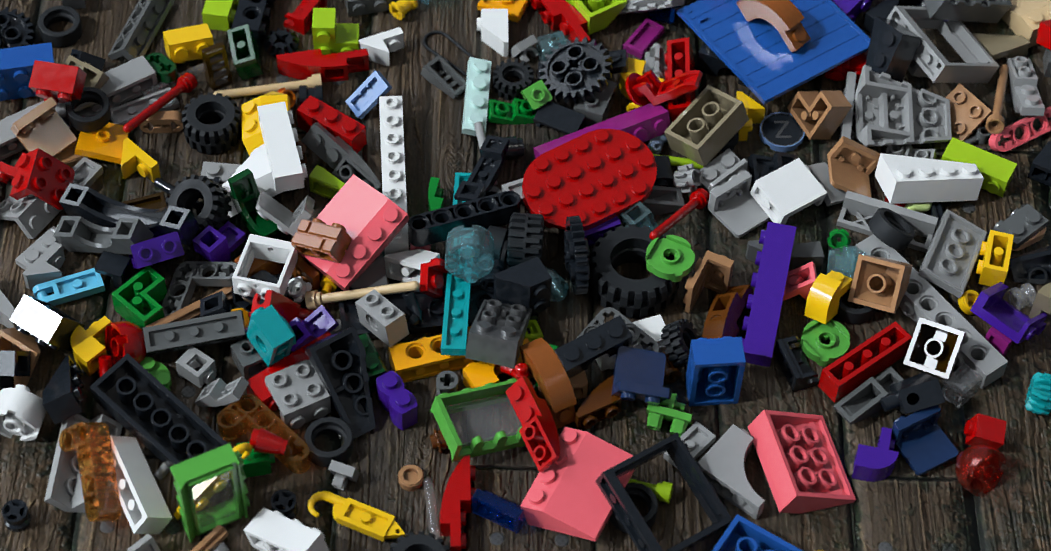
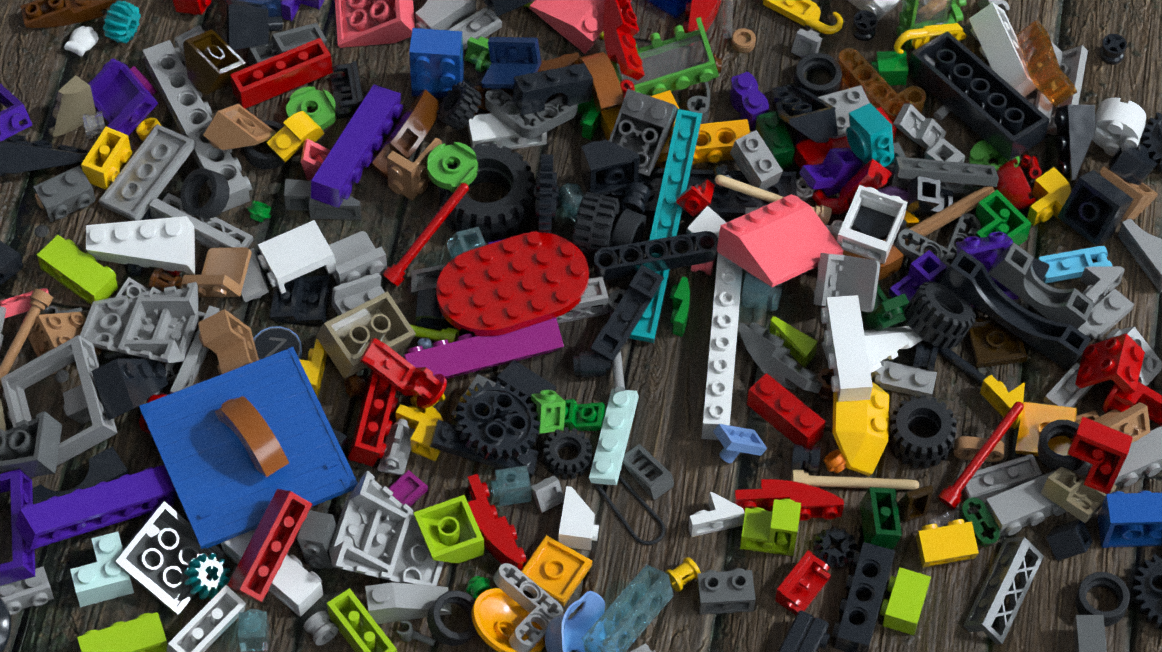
camera: 170 degrees left, 5 degrees up
(267, 442) = (879, 56): red cone -> none
(321, 240) = (813, 220): dark orange brick -> none
(469, 252) = (659, 193): clear light blue brick -> none
(687, 178) = (402, 290): light grey gear -> none
(843, 260) = (263, 172): clear light blue brick -> none

